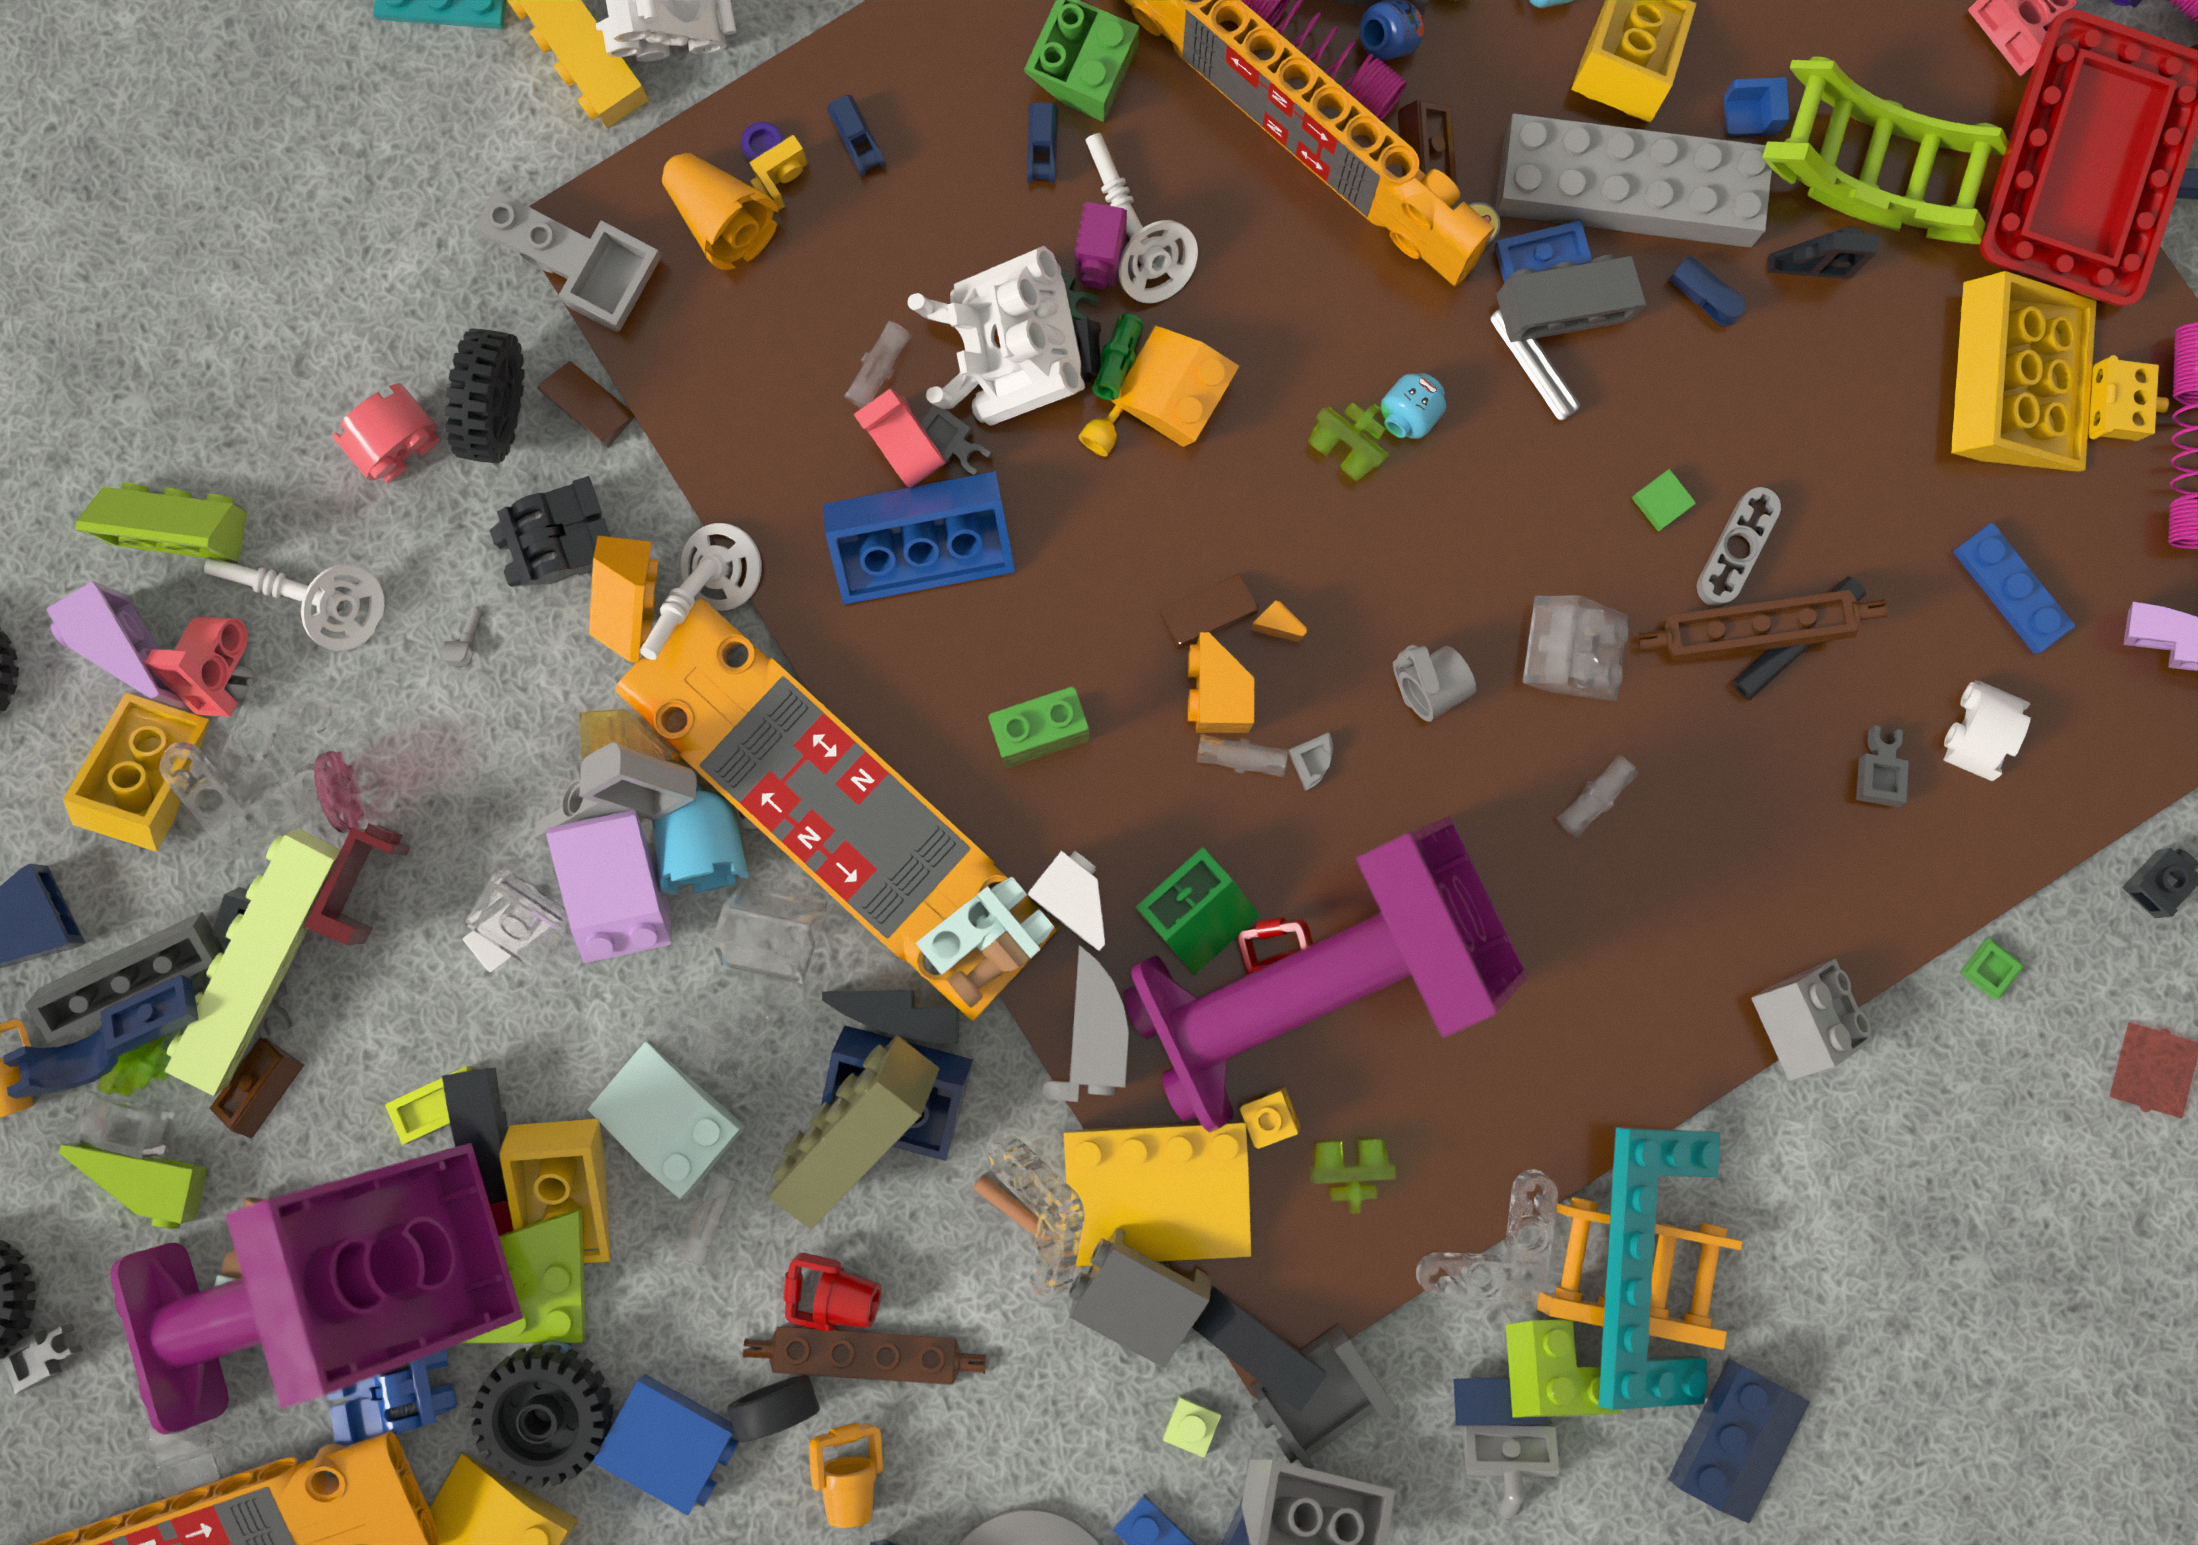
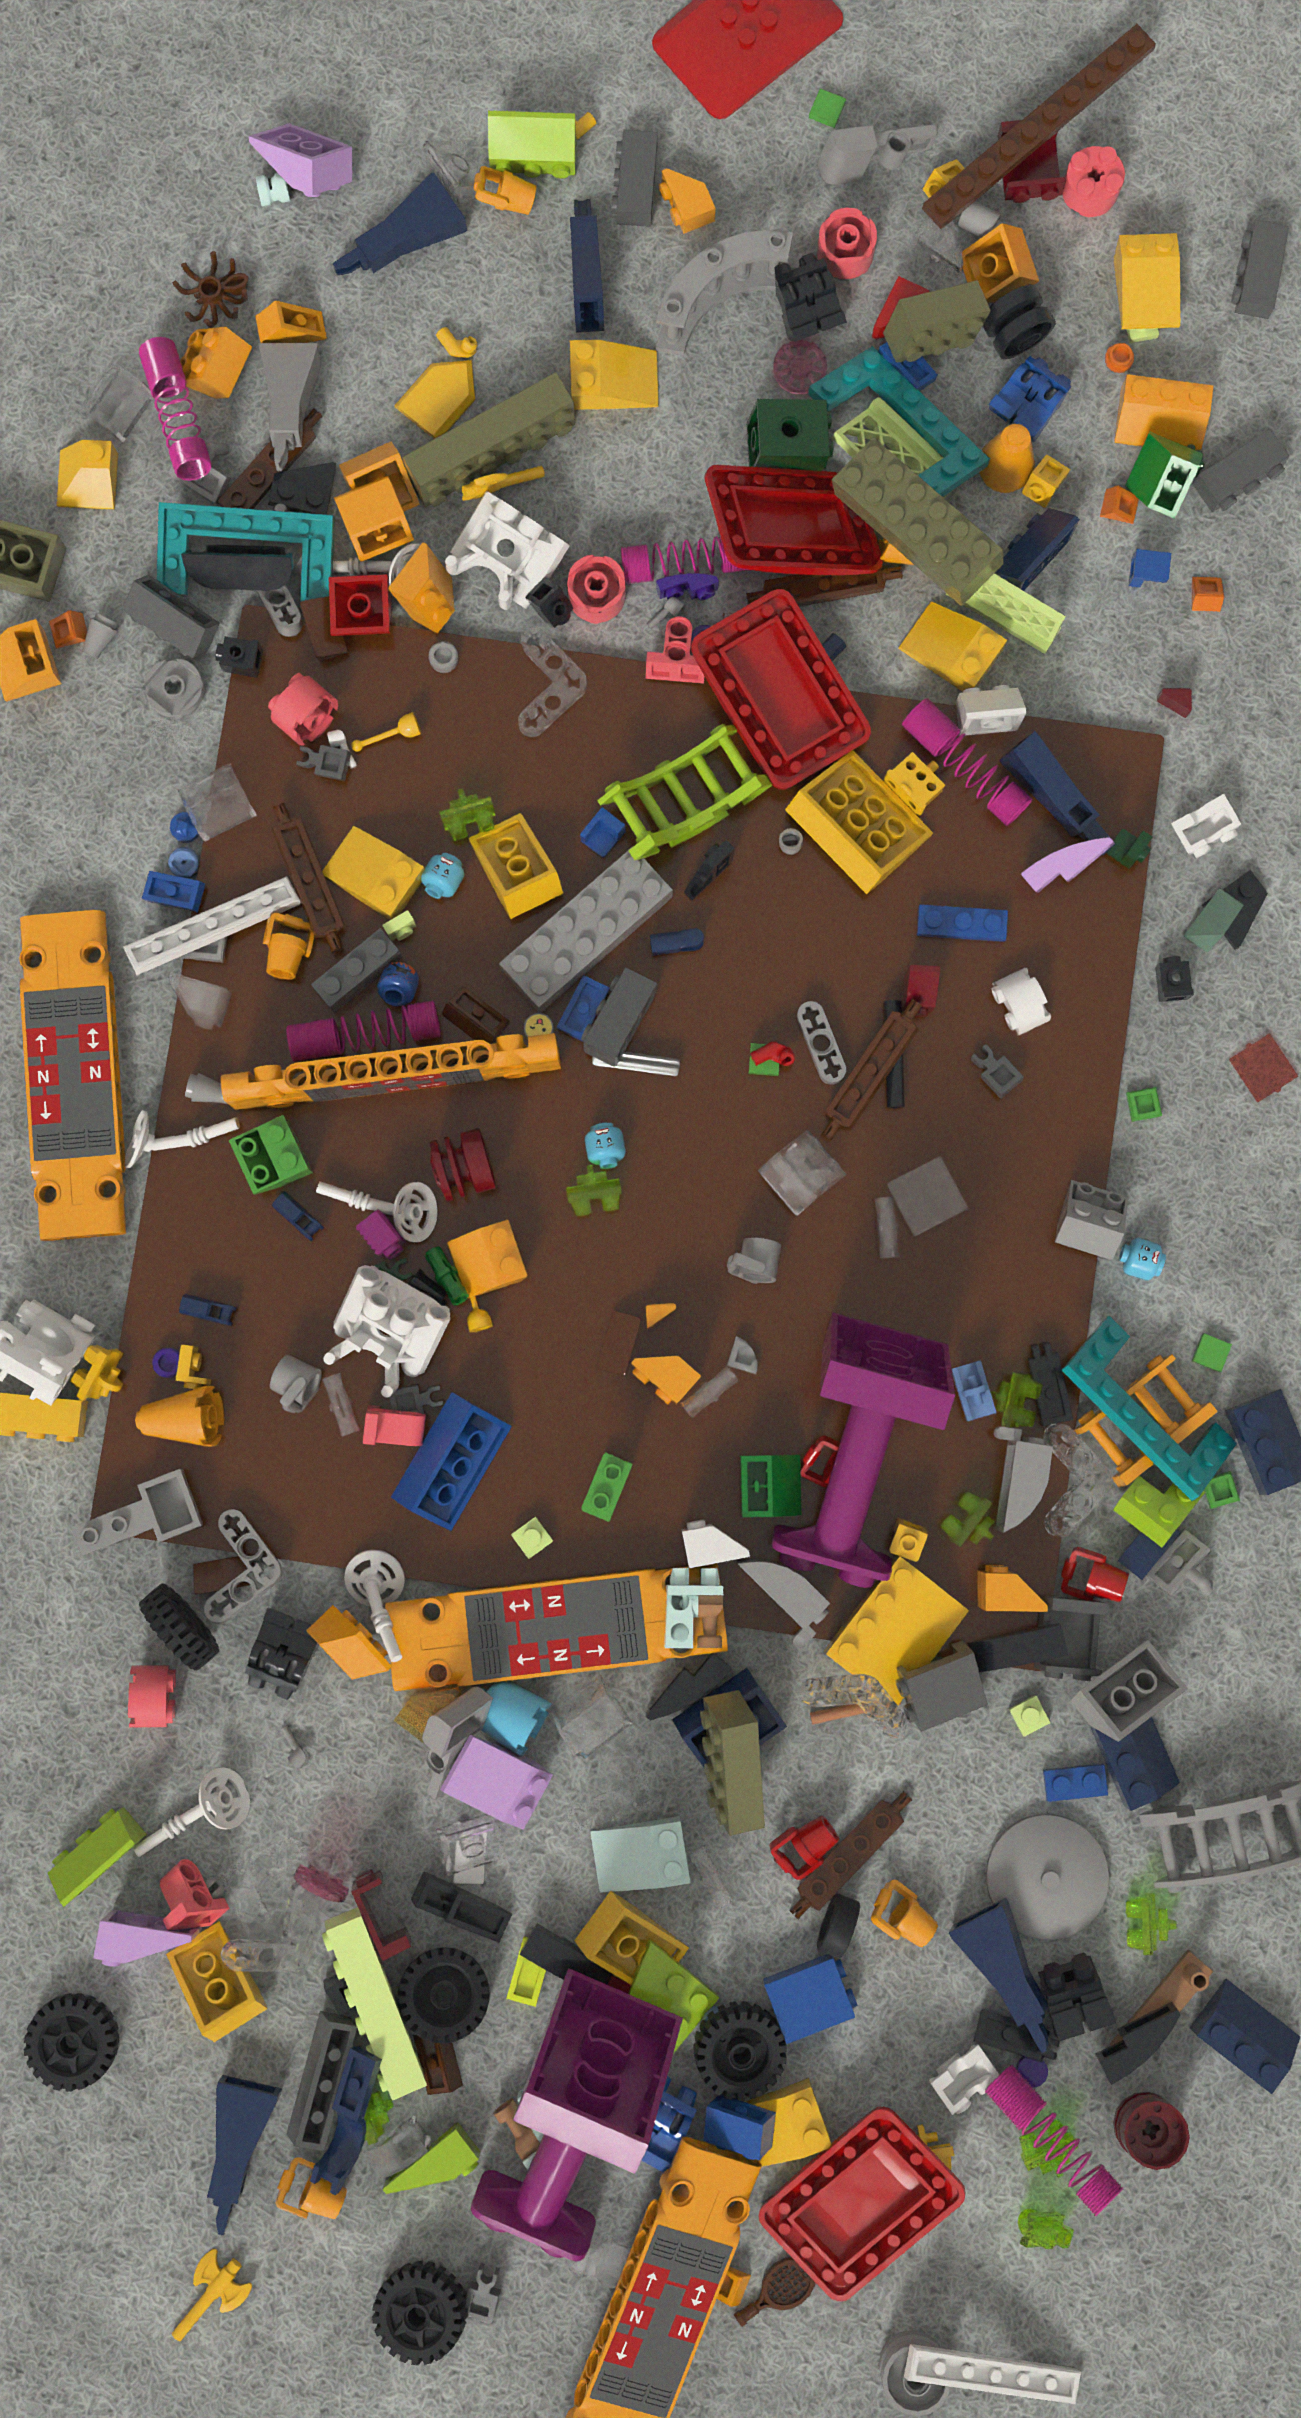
camera: 50 degrees left, 0 degrees up
(291, 1025) = (417, 1995): none -> black wheel
(441, 968) = (460, 1907): none -> black slope
(456, 1487) = (739, 2127): none -> blue brick
(609, 428) = (251, 1575): none -> light grey beam
(687, 83) = (101, 1376): none -> yellow hips
(858, 295) = (296, 1382): none -> light grey piece
(912, 698) = (532, 1537): none -> yellowish green plate
(1255, 266) = (462, 1165): none -> dark red wheel
(1310, 1279) = (1005, 1591): none -> light orange slope
(1415, 1383) = (1104, 1580): none -> red piece
(1458, 1187) = (1023, 1477): none -> light grey piece
(1502, 1049) = (973, 1390): none -> medium blue hips
(1531, 1101) = (1012, 1399): none -> clear neon green hips
(1582, 1131) = (1054, 1401): none -> black hinge
(1634, 1431) = (1221, 1490): none -> bright green tile
(1673, 811) = (927, 1196): none -> clear tile
(1683, 501) = (774, 1051): none -> red arm
(1780, 1286) = (1211, 1352): none -> bright green tile
(1817, 1116) = (1142, 1259): none -> medium azure head
(1907, 599) = (922, 986): none -> dark red slope
(1933, 319) = (790, 837): none -> light grey hinge

